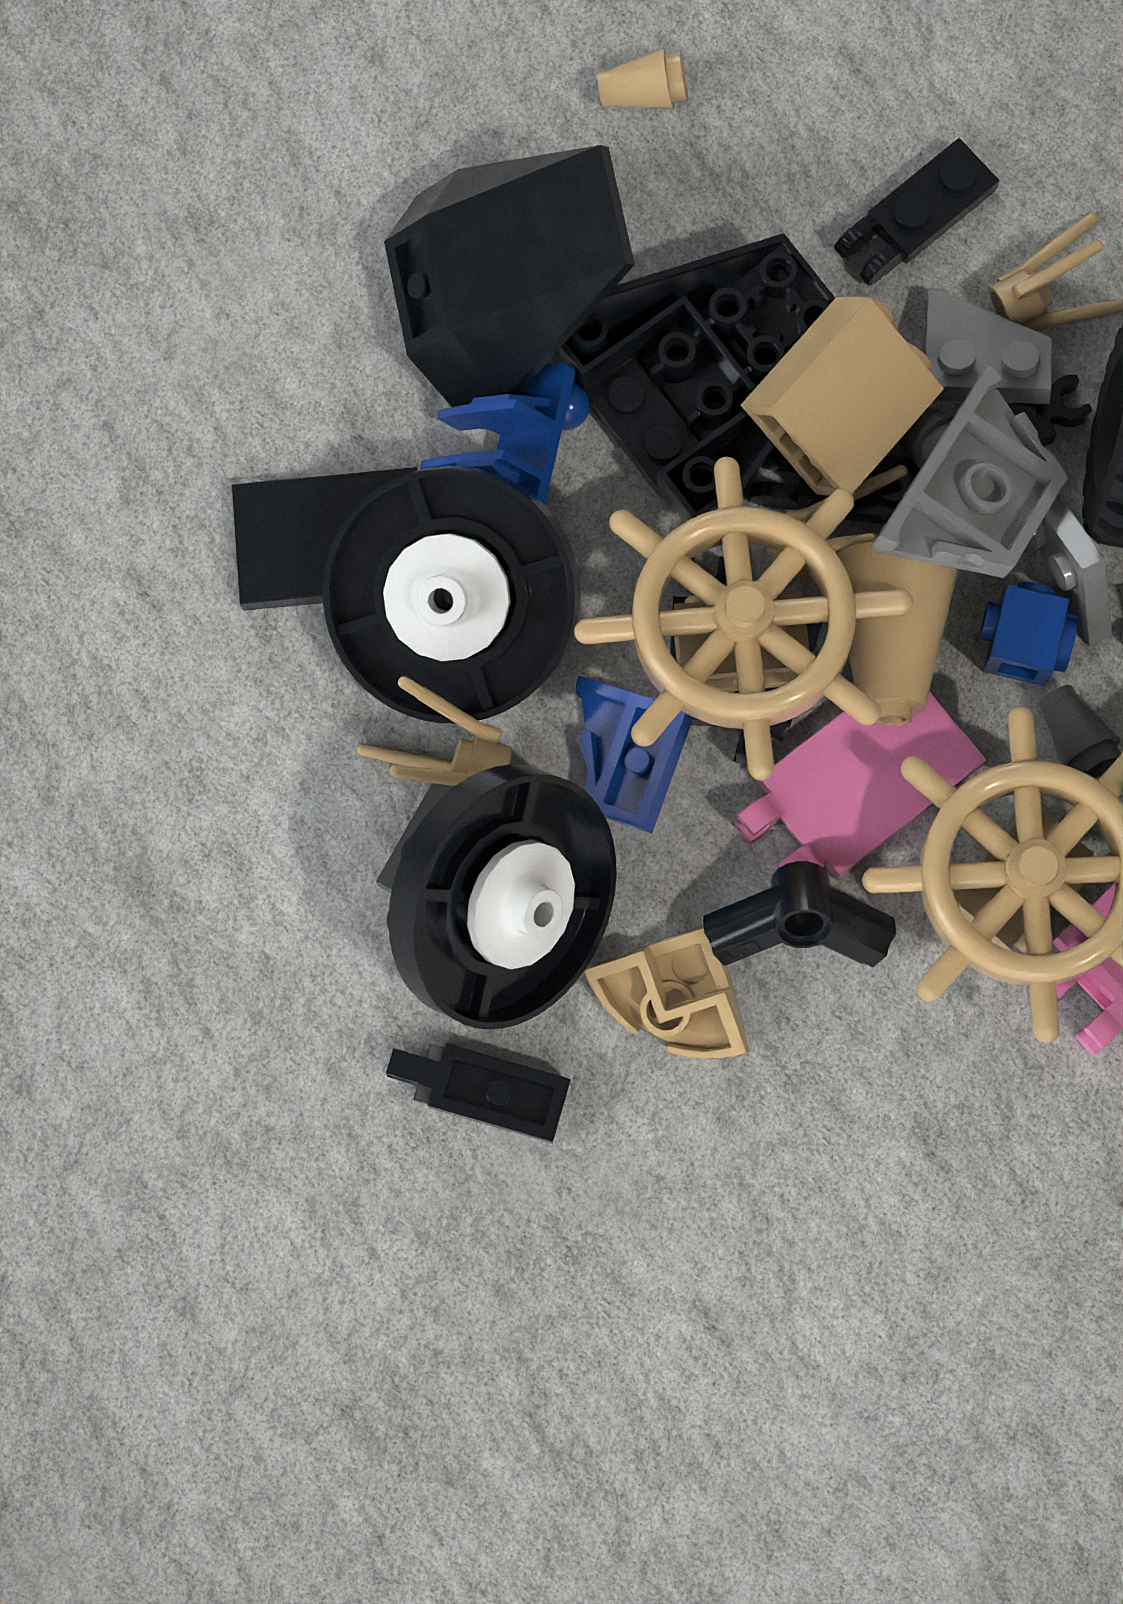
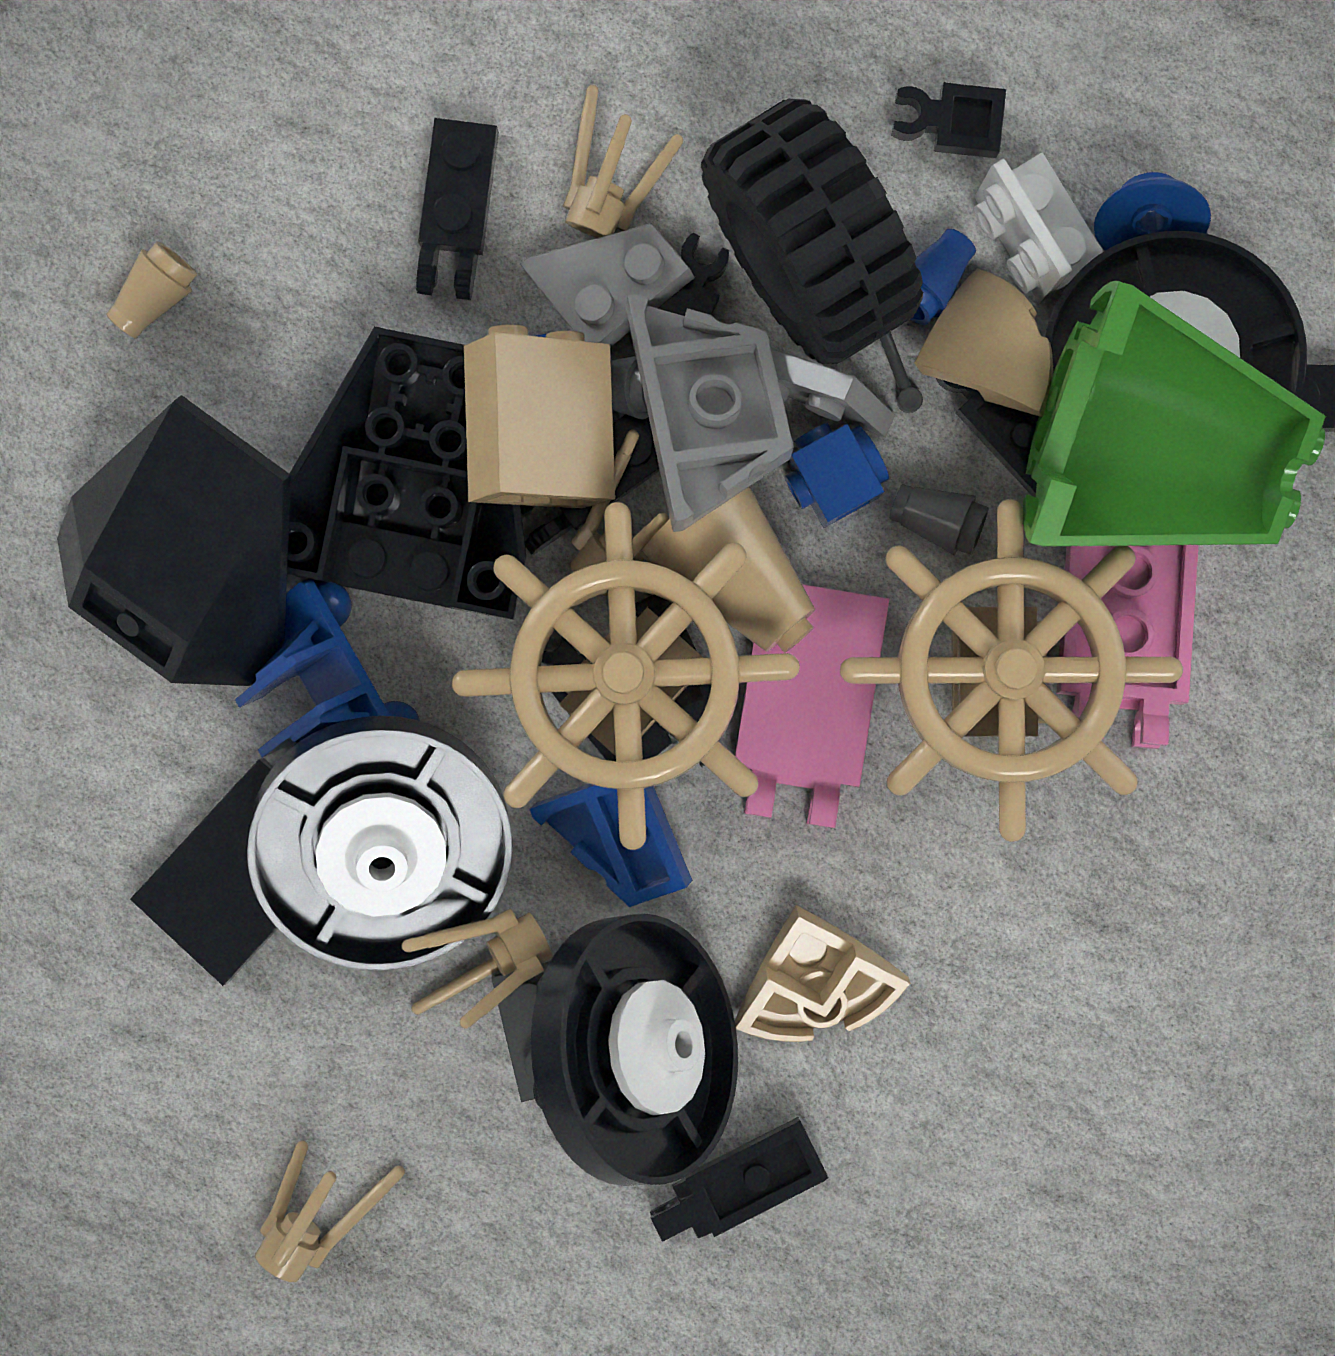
camera: 40 degrees left, 10 degrees up
(117, 828) = (292, 1240): none -> tan plant
(801, 914) = (860, 850): black piece -> none

